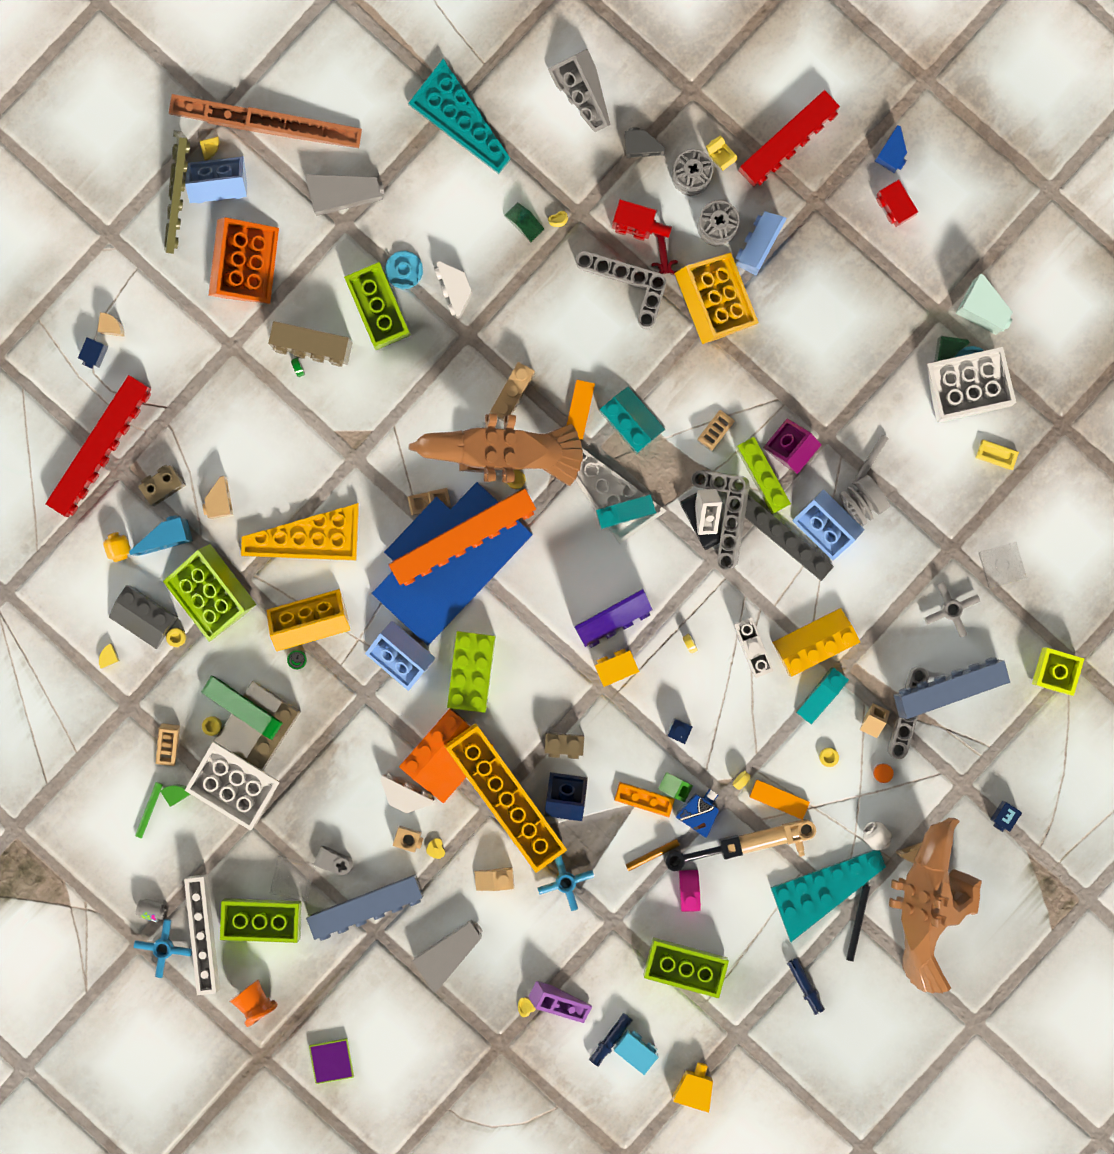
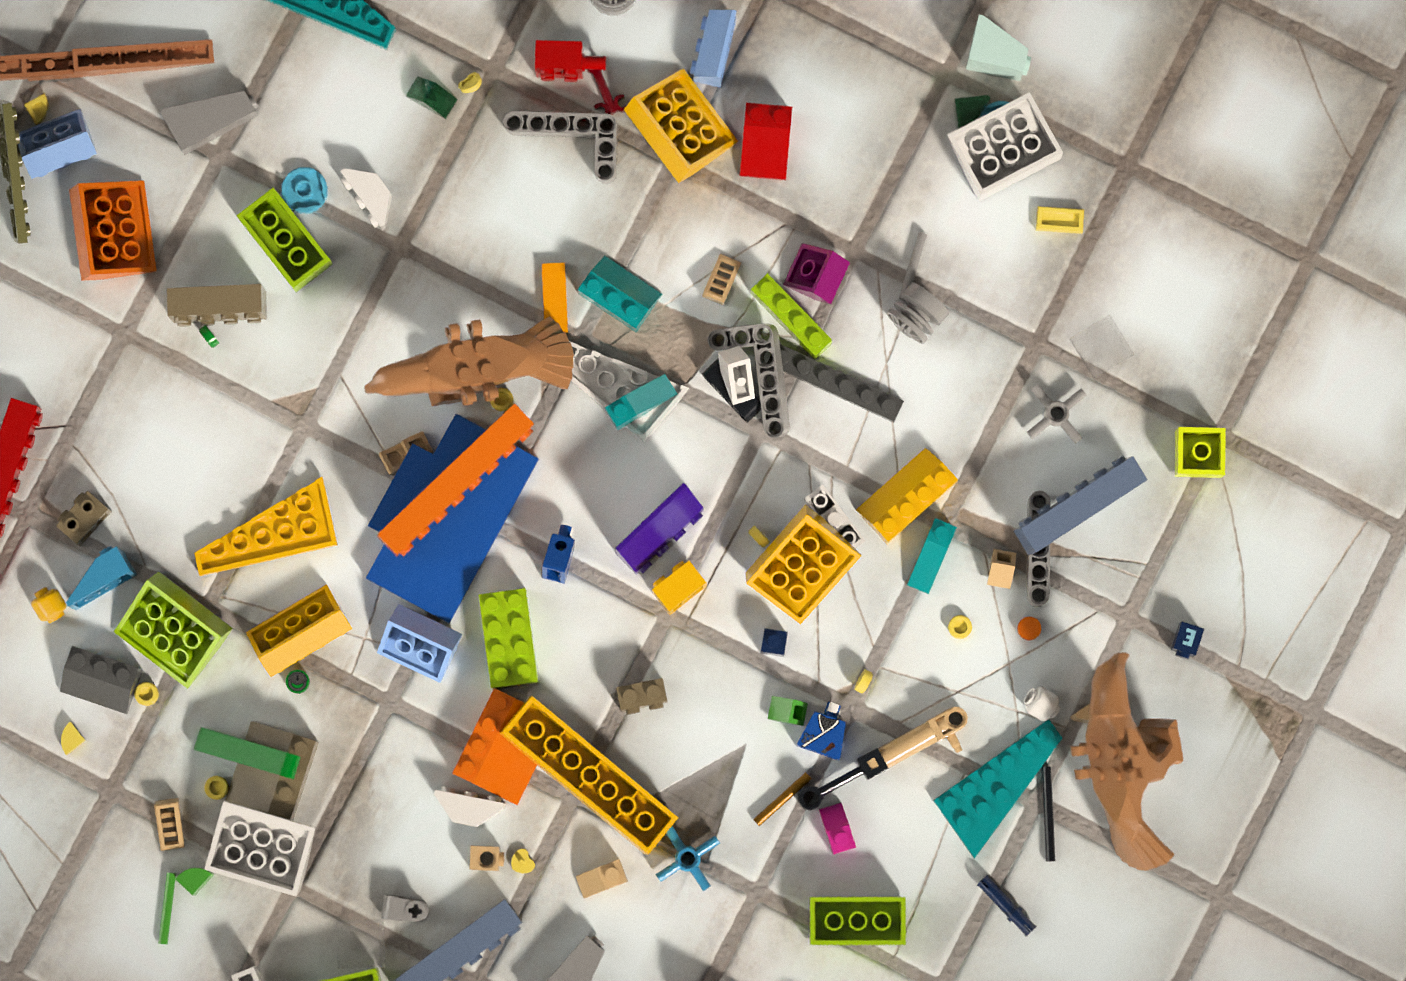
camera: 20 degrees left, 5 degrees down
(218, 500) = (155, 518): tan slope -> none
(513, 391) = (471, 295): tan brick -> none
(525, 622) = (558, 562): none -> blue torso
(566, 796) = (660, 757): dark blue slope -> none
(644, 799) = (755, 736): light orange tile -> none
(718, 676) = (802, 564): none -> yellow slope
(724, 232) = (668, 47): light grey wheel -> none
(779, 799) = (914, 692): light orange tile -> none
(780, 329) = (765, 141): none -> red slope
(828, 525) = (883, 354): light blue slope -> none

